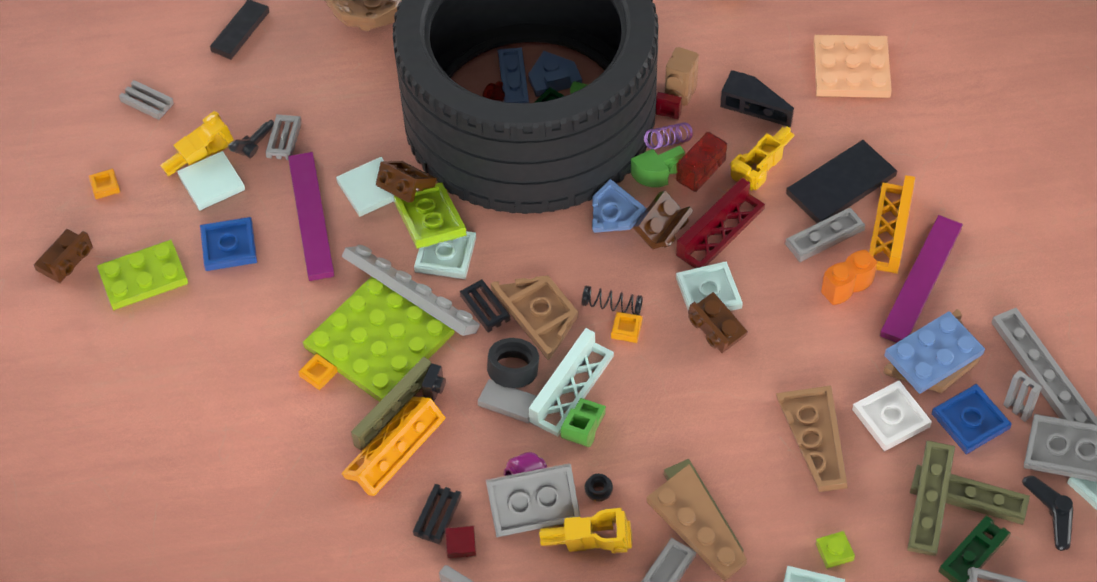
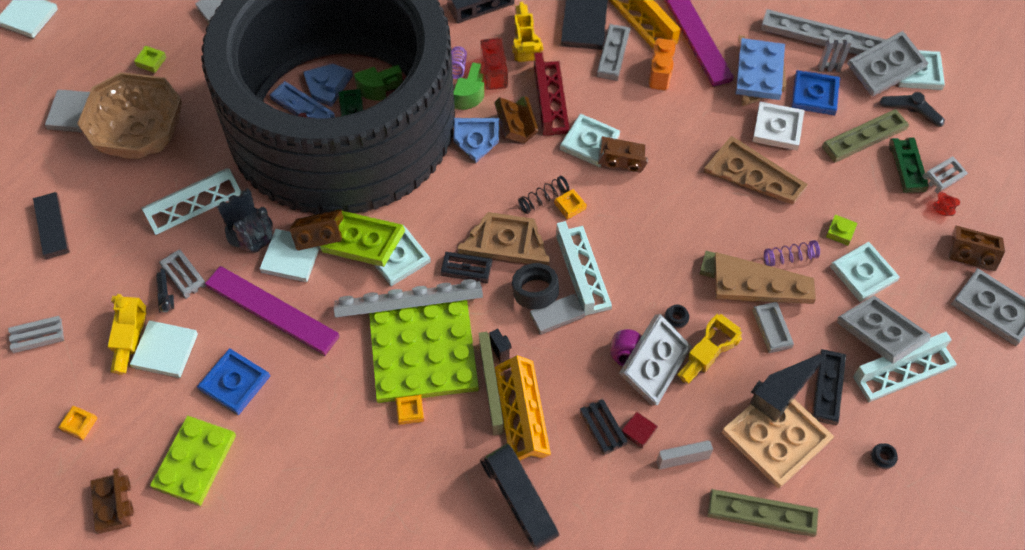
camera: 50 degrees left, 5 degrees up
(310, 498) = (520, 495): none -> black beam
(352, 78) = (187, 192): none -> light aqua fence
(361, 135) = (244, 224): none -> black piece
(583, 422) = (624, 284): bright green brick -> none
(784, 542) = (811, 250): none -> medium lavender piece
(931, 498) = (855, 154): olive tile -> none

